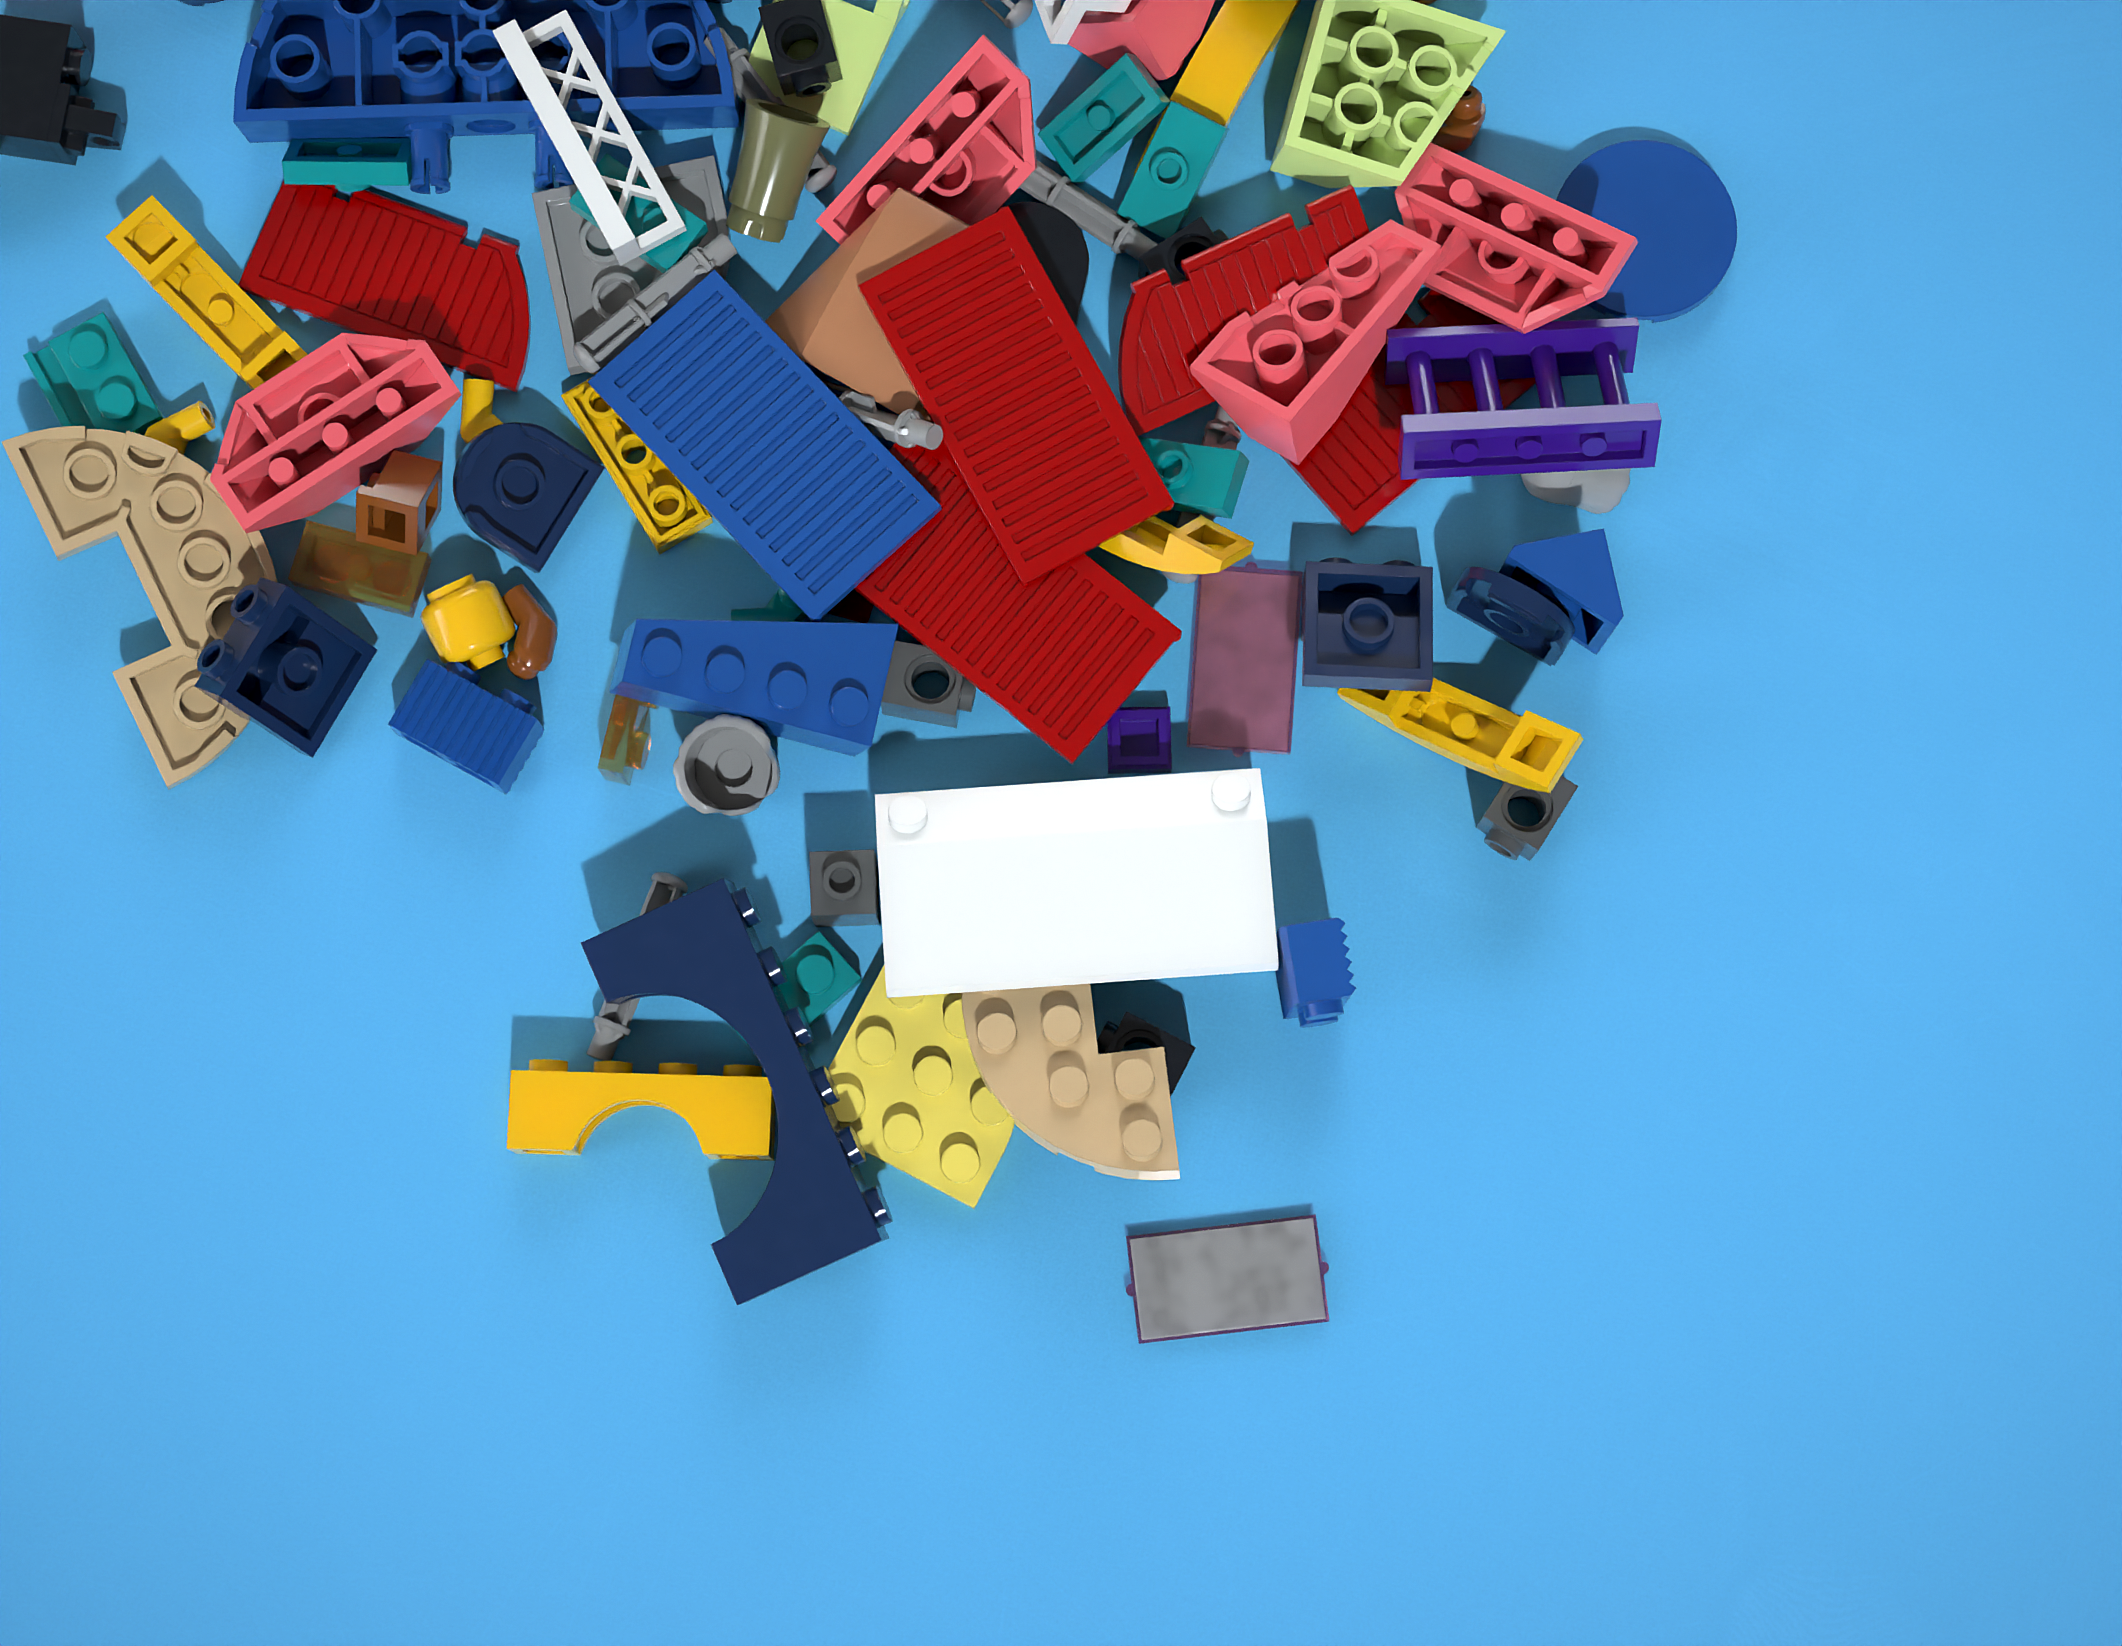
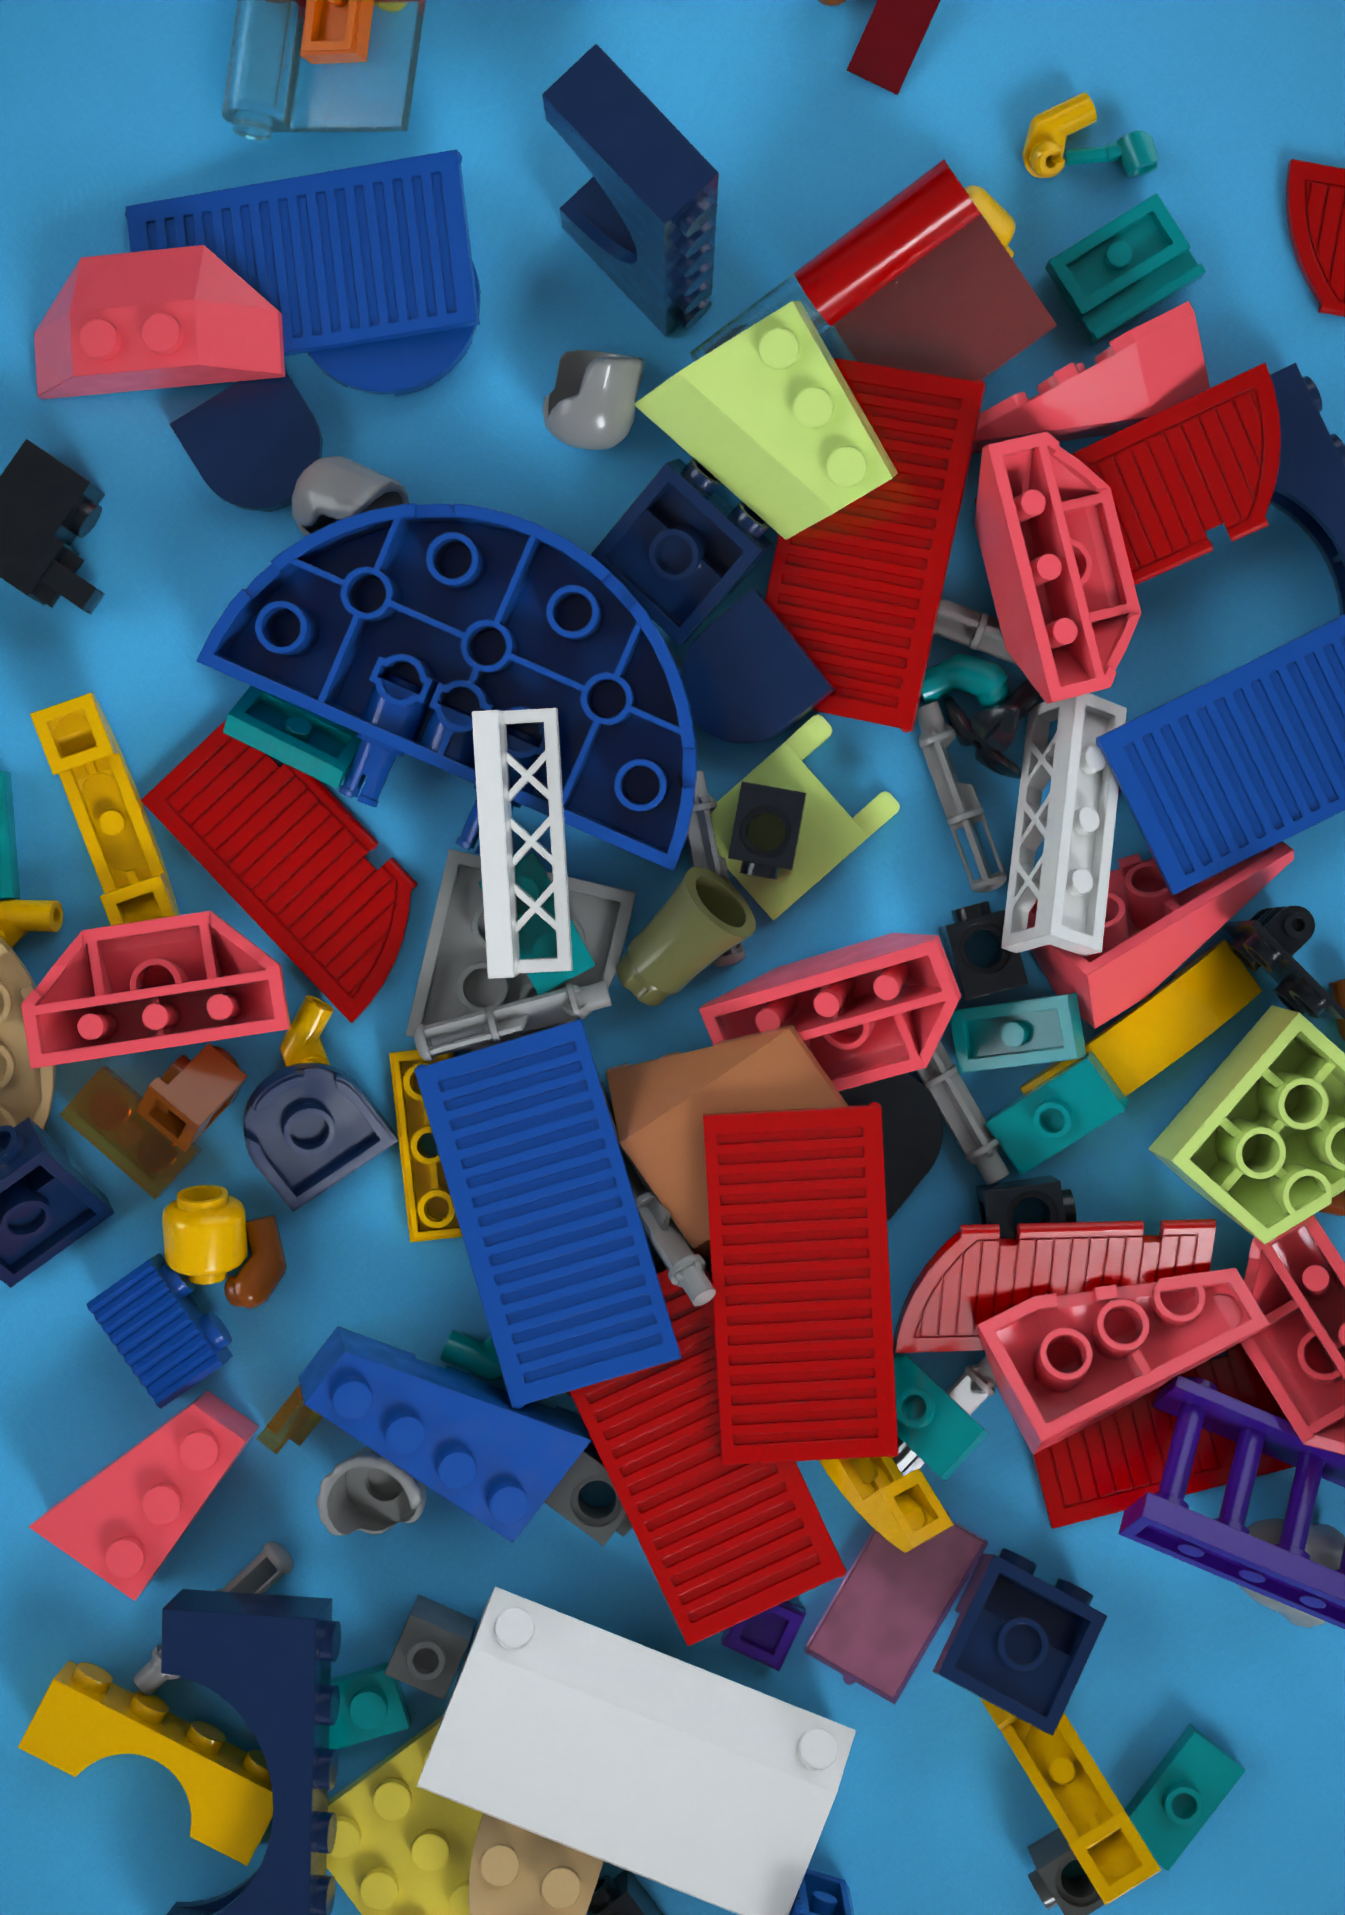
camera: 25 degrees right, 10 degrees up
(524, 872) = (147, 1498): none -> coral wedge
(1061, 85) = (1001, 974): none -> black brick
(1512, 613) = (1154, 1689): dark blue tile -> none
(1574, 576) = (1230, 1693): blue slope -> none
(1590, 704) = (1182, 1794): none -> teal plate

